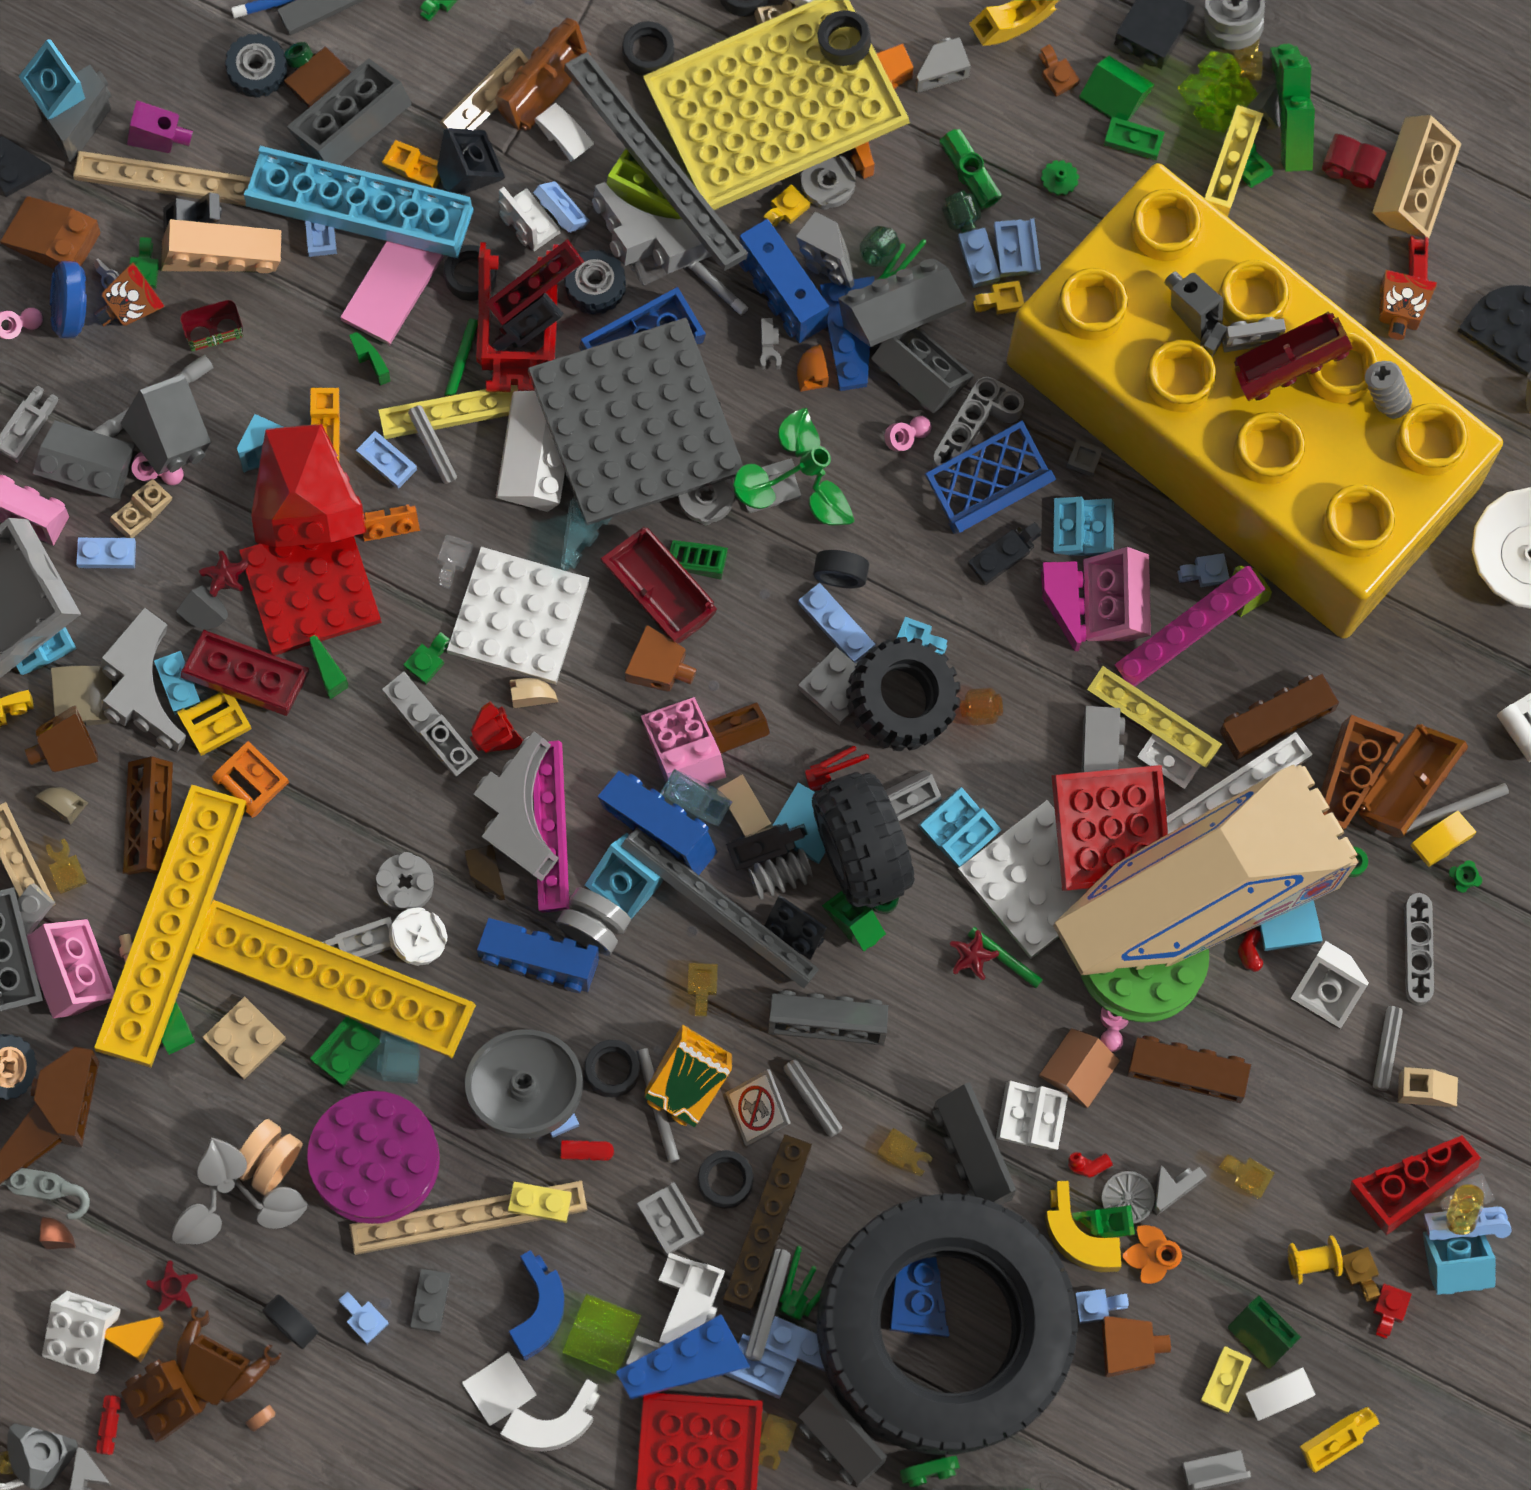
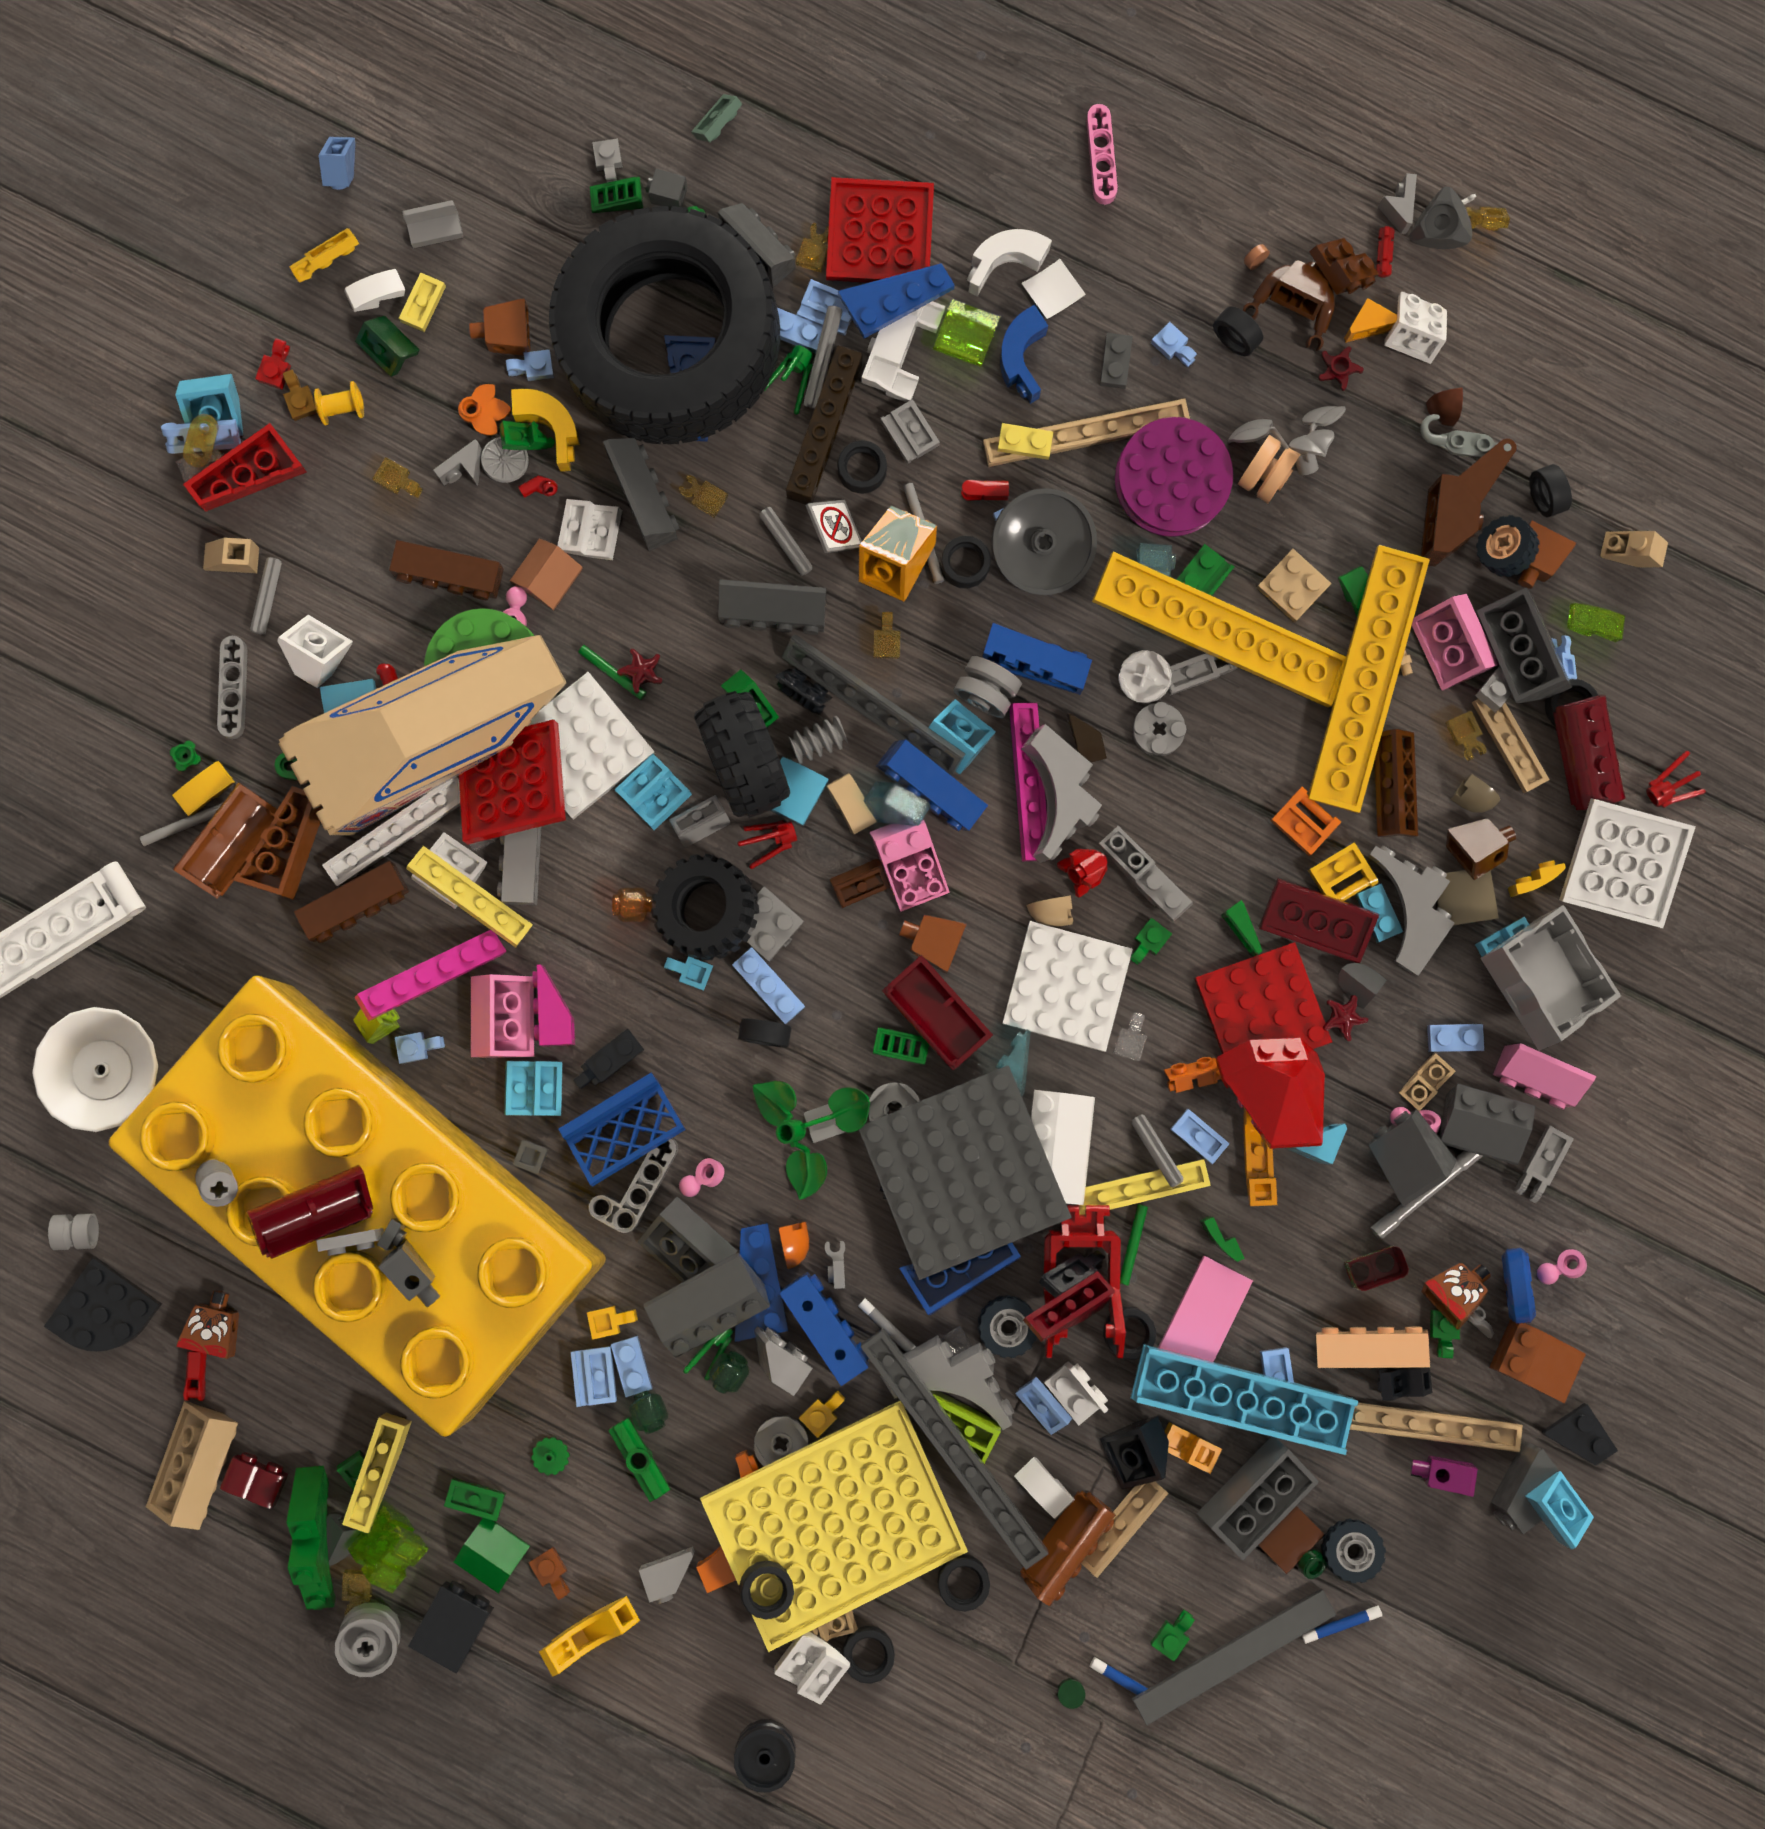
camera: 175 degrees right, 10 degrees up
(764, 844) = (831, 764): black hinge -> none

